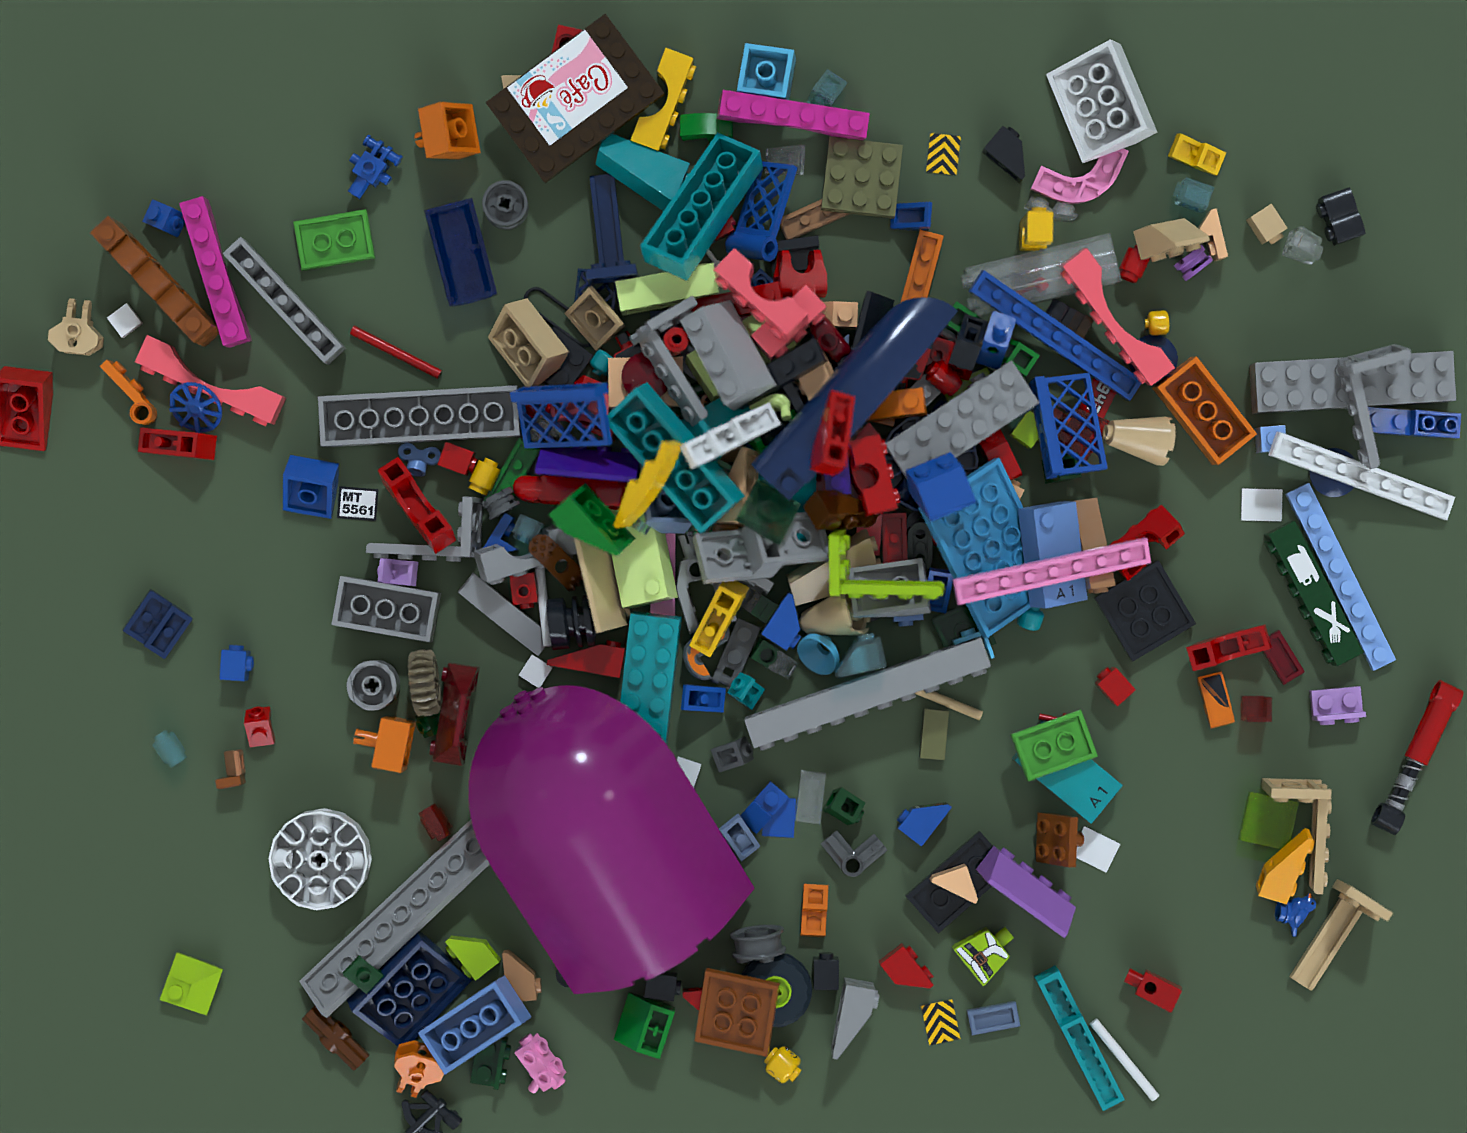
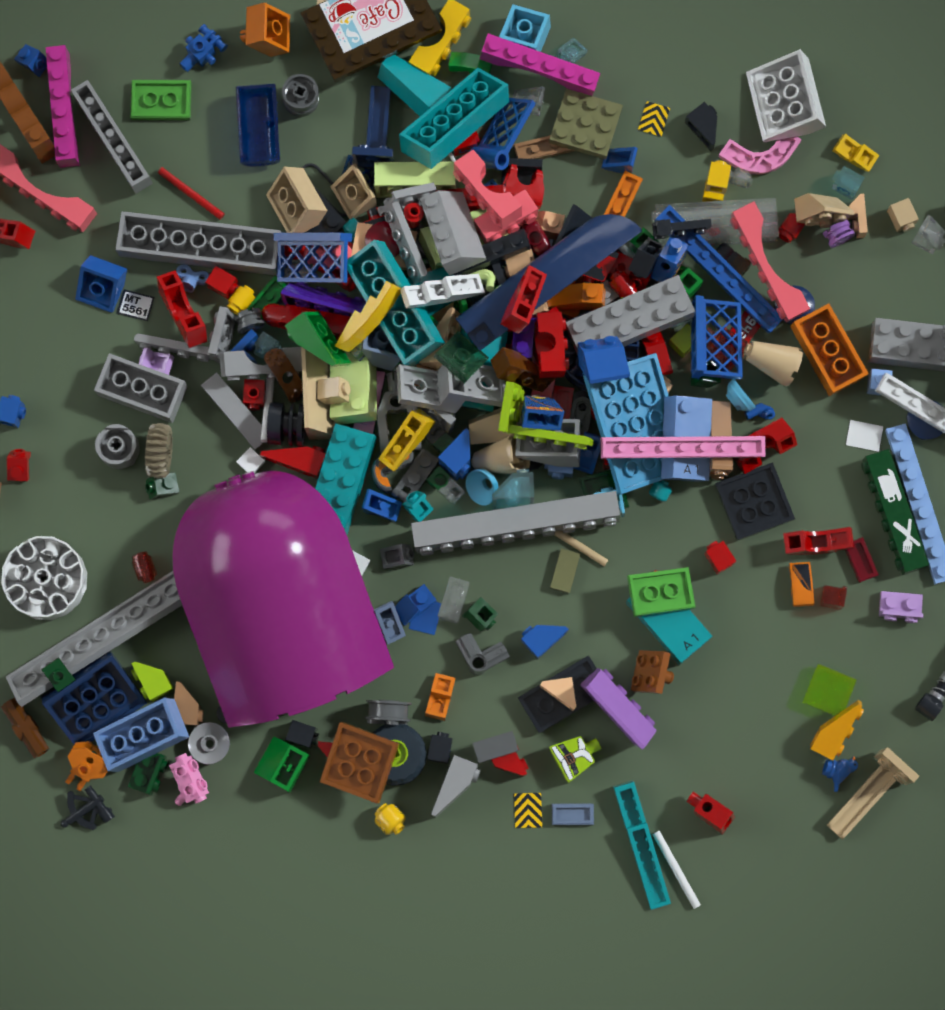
camera: 10 degrees right, 10 degrees down
(195, 407) = (23, 205): blue wheel -> none
(390, 743) = (121, 495): orange brick -> none
(450, 742) = (168, 506): dark red wedge -> none
(545, 1024) = (199, 738): none -> light grey dish
(620, 576) = (333, 390): none -> tan brick
(876, 562) = (541, 413): none -> blue torso
(891, 962) = (495, 747): none -> dark grey tile
(985, 303) = (664, 228): none -> black plate
(1097, 849) = (682, 690): white sticker -> none
(1106, 489) = (739, 397): none -> medium azure piece
(1133, 497) = (762, 411): none -> blue arm
(1157, 323) = (802, 276): yellow piece -> none
(1308, 792) = (870, 704): tan bracket -> none

